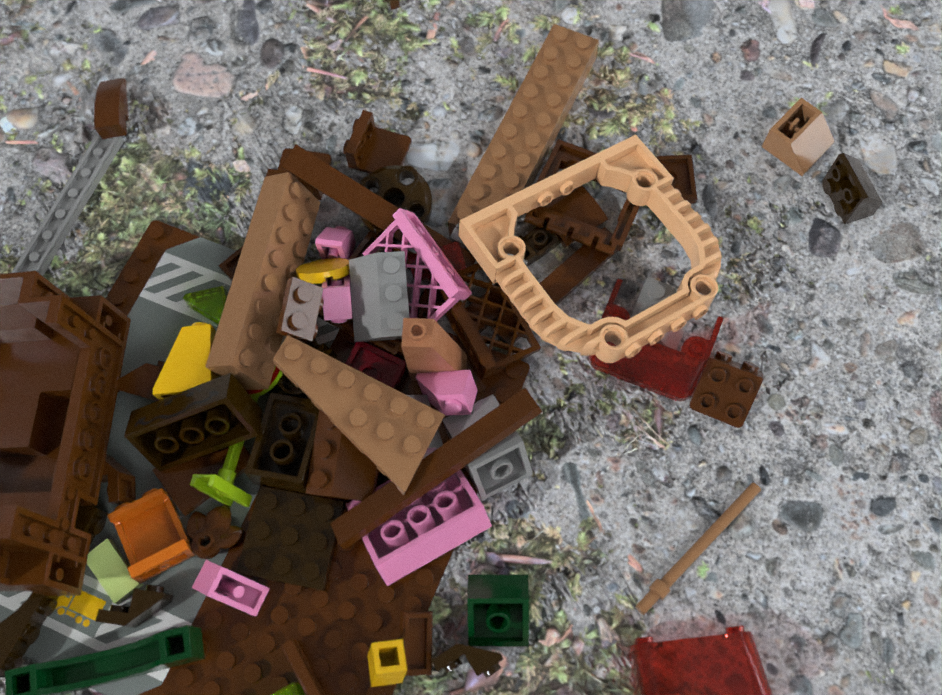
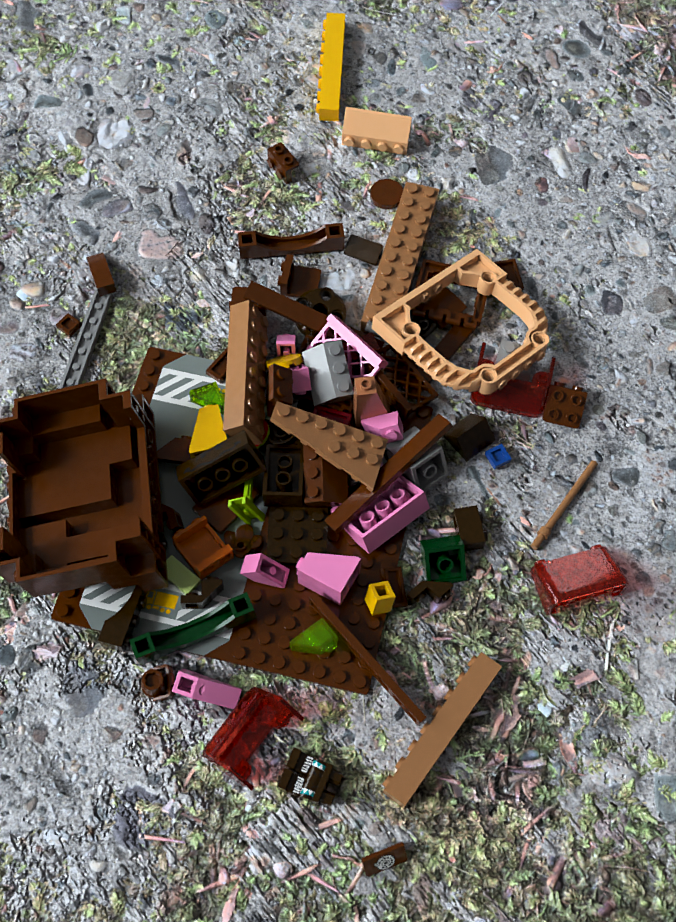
camera: 15 degrees left, 5 degrees down
(54, 174) = (69, 325): none -> reddish brown tile
(316, 615) = (328, 574): none -> bright pink slope
(422, 94) = (258, 245): none -> reddish brown arch
(476, 115) = (363, 249): none -> dark brown slope
(524, 37) = (386, 193): none -> reddish brown tile
(547, 566) = (468, 526): none -> dark brown brick
(576, 417) = (470, 436): none -> dark brown slope
(611, 456) = (498, 456): none -> blue plate
(799, 137) = (584, 238): medium nougat slope -> none
(850, 189) = (623, 268): dark brown slope -> none

